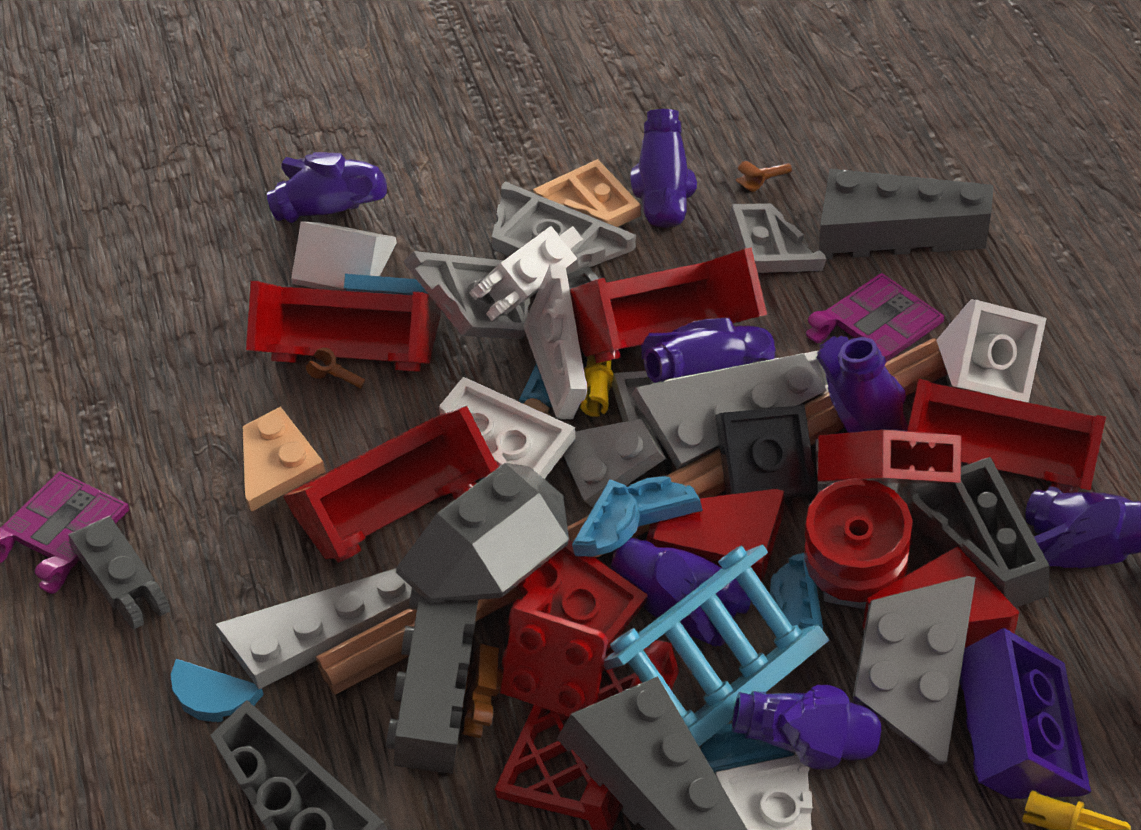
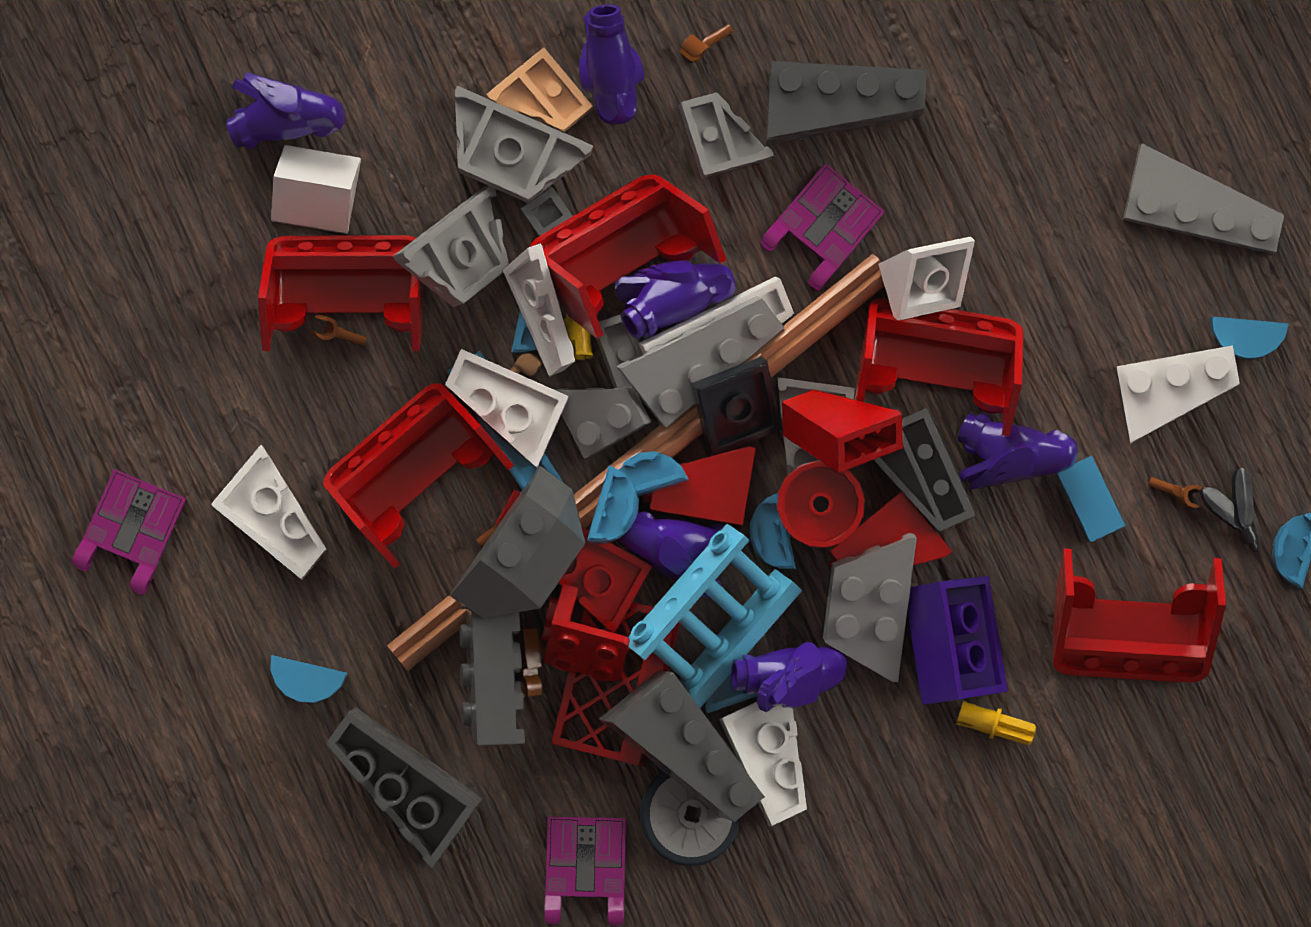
camera: 15 degrees left, 35 degrees up
(117, 570) = (197, 572): dark grey hinge -> none
(216, 523) = (270, 514): none -> white wing
(276, 458) = (304, 435): light nougat wing -> none
(292, 633) = (376, 611): light grey wing -> none
(381, 284) = (367, 235): dark azure tile -> none
(524, 270) = (501, 228): white hinge -> none
(861, 385) = (818, 345): dark purple animal -> none

